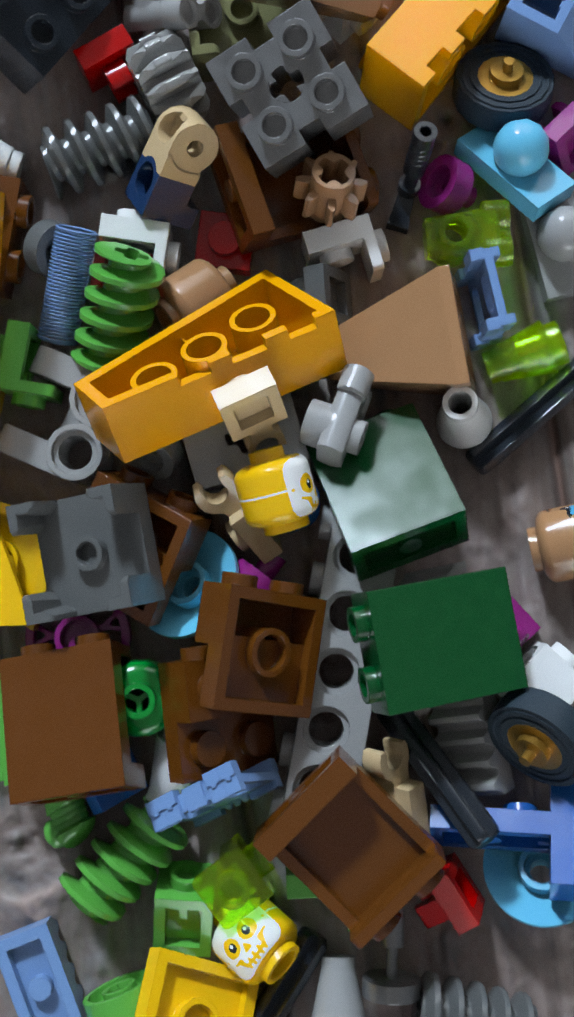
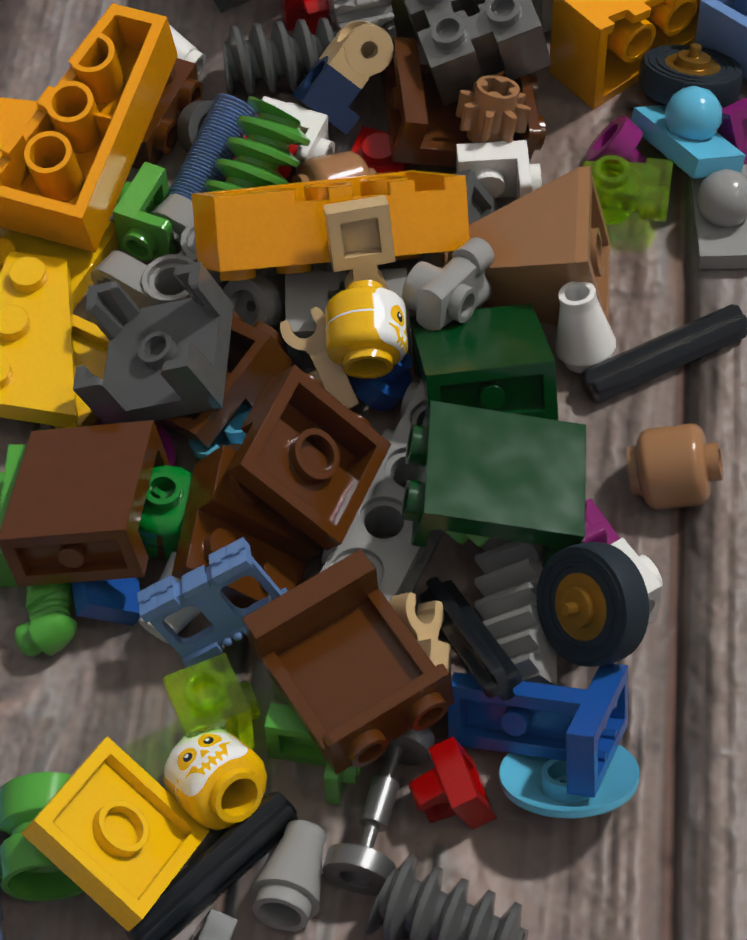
camera: 20 degrees right, 30 degrees down
(122, 865) = (91, 666): bright green piece -> none
(180, 915) = (145, 729): bright green bracket -> none
(413, 169) = (587, 118): black piece -> none
(486, 296) = (627, 229): medium blue piece -> none
(527, 353) = (666, 297): clear neon green cone -> none

